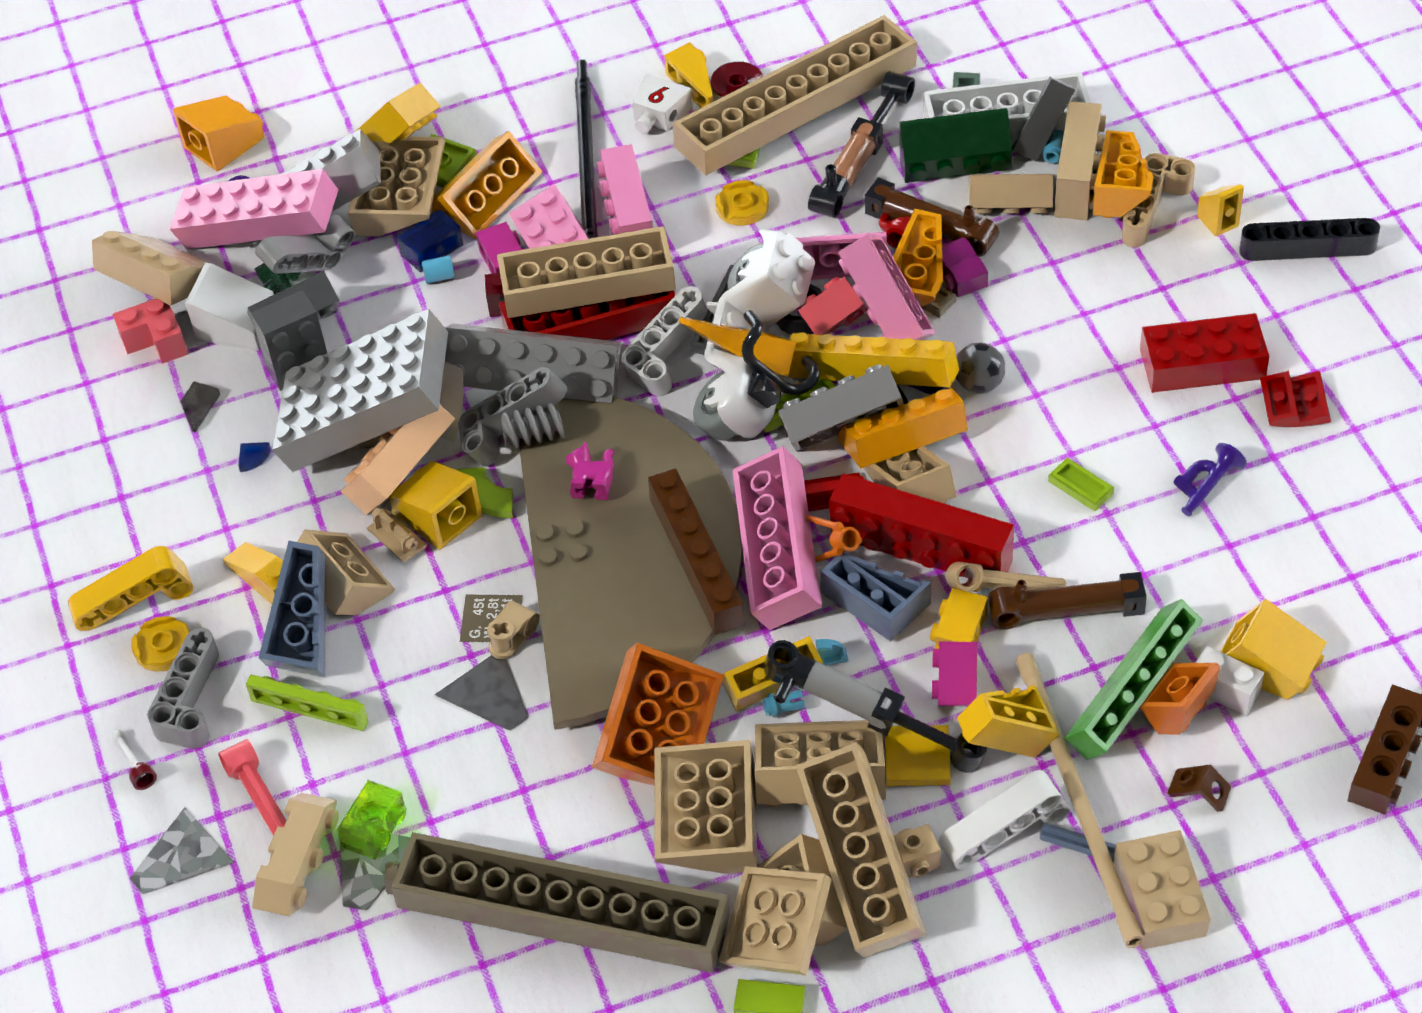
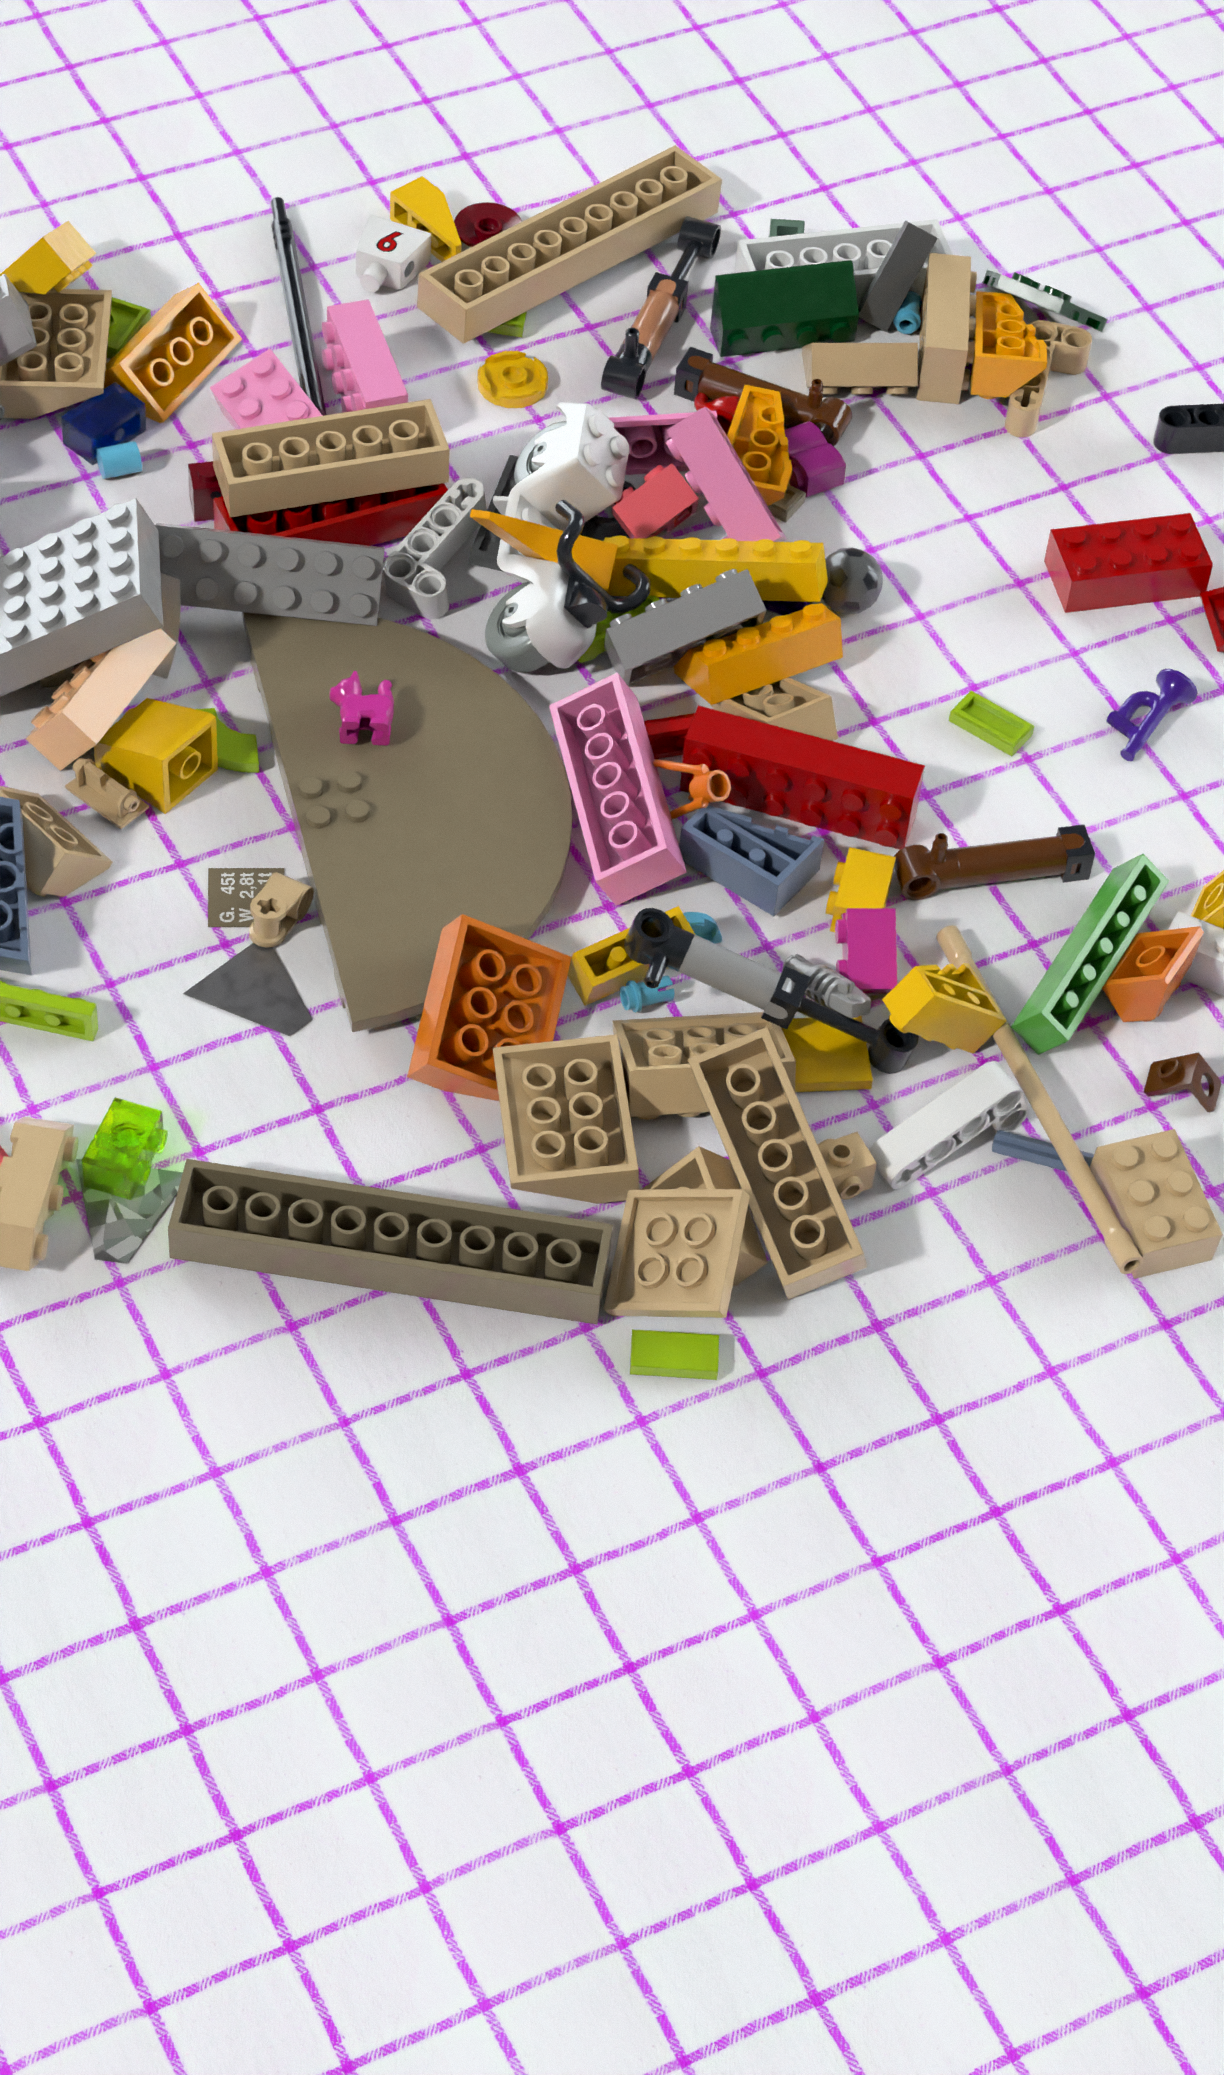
camera: 15 degrees left, 0 degrees up
(390, 872) = (159, 1218): dark tan tile -> none
(481, 424) = (242, 633): light grey beam -> none
(495, 241) = (192, 429): dark pink brick -> none
(531, 425) = (278, 650): light grey piece -> none
(696, 551) = (516, 805): reddish brown brick -> none
(922, 703) = (831, 988): none -> light grey hinge
(992, 579) = (884, 834): tan axle -> none
(1168, 137) = (1049, 298): none -> wing
(1221, 208) = (1129, 388): yellow slope -> none

